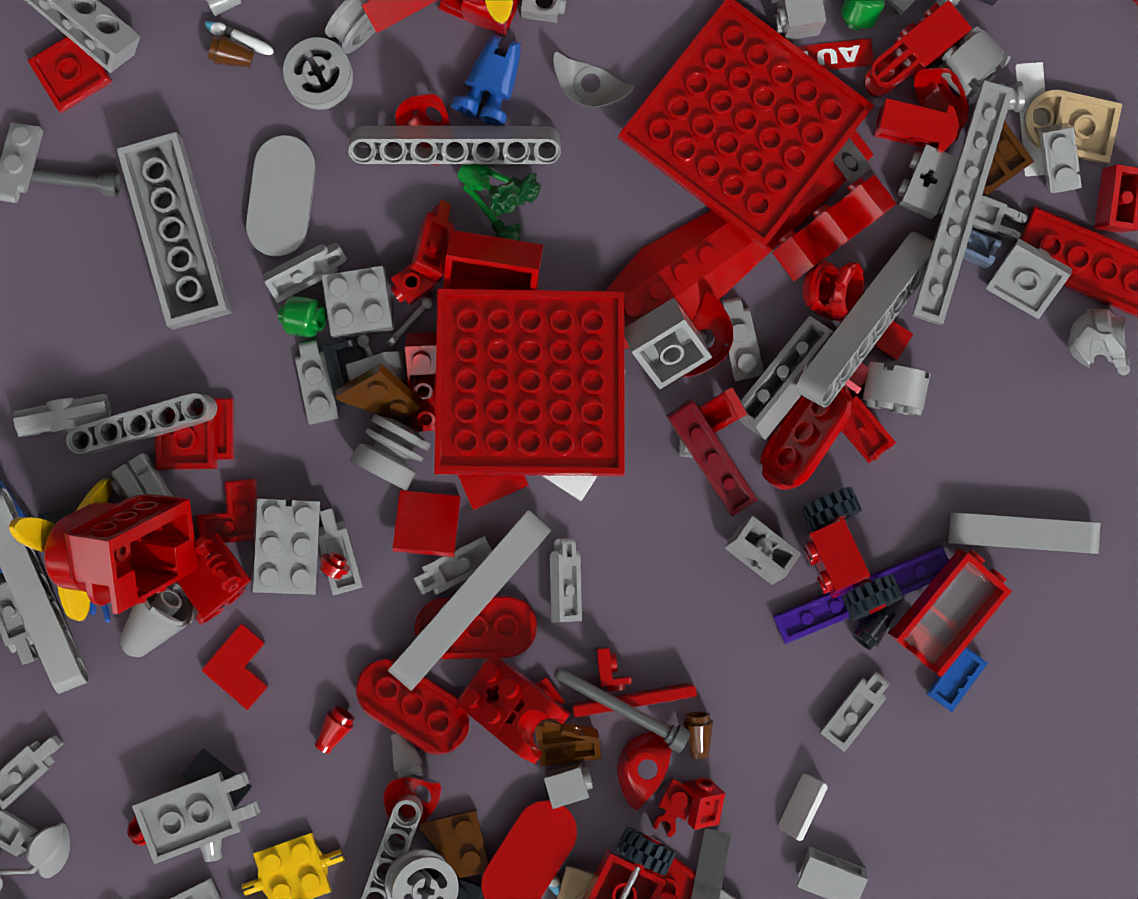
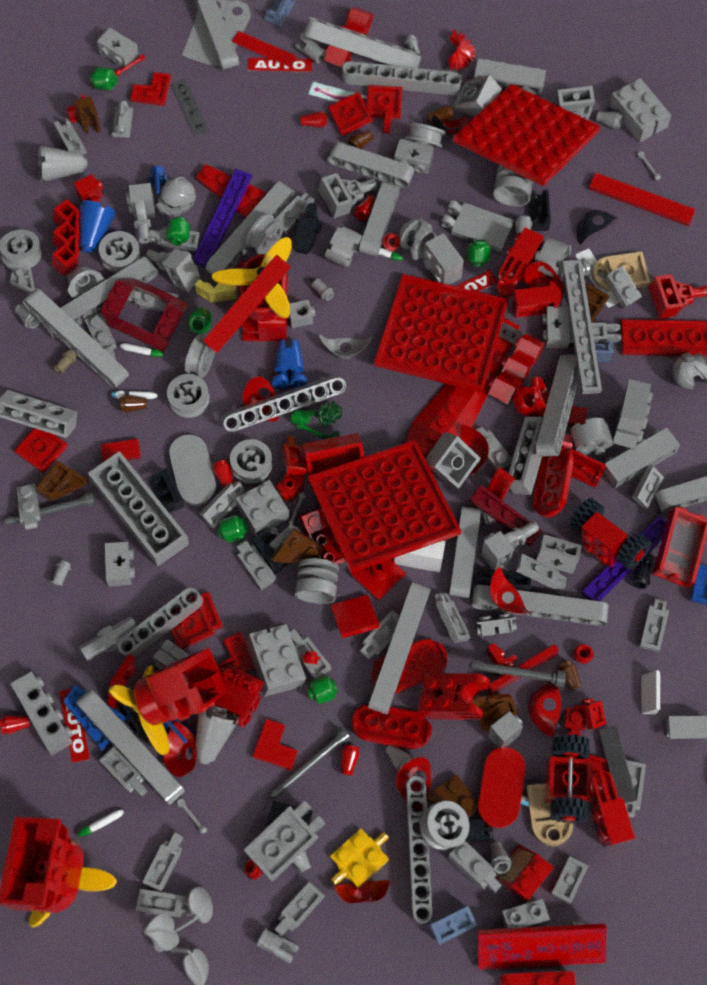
camera: 25 degrees left, 20 degrees down
(29, 284) = (61, 572): none -> light grey pin
(55, 486) = (122, 677): none -> red wing
(77, 140) = (60, 482): none -> reddish brown wing
(79, 694) = (181, 803): none -> light grey hinge
(92, 643) = (182, 766): none -> red piece
(116, 289) = (114, 554): none -> light grey brick
(187, 122) = (129, 449): none -> red tile
(229, 217) = (167, 491): none -> black hinge
(323, 222) = (223, 472): none -> red cone
(334, 693) = (340, 738): none -> dark grey piece
(335, 615) = (322, 689): none -> green head
(361, 197) = (246, 451): none -> light grey wheel
(612, 610) = (488, 624): none -> light grey hinge
(629, 489) = (465, 552): none -> light grey beam
(659, 611) = (498, 587): none -> red piece
(668, 557) = (519, 581): none -> black hinge
(675, 509) = (499, 548): none -> light grey brick
(702, 614) = (547, 606): none -> light grey beam
(724, 566) = (540, 572): none -> light grey hinge
(743, 711) = (583, 648): none -> red plate
(945, 496) = (647, 487): none -> light grey plate
(957, 446) = (635, 461): none -> light grey brick
(973, 380) = (633, 414): none -> light grey piece
(1029, 278) = (636, 354): light grey hinge -> none
(1053, 26) = (587, 227): none -> black piece

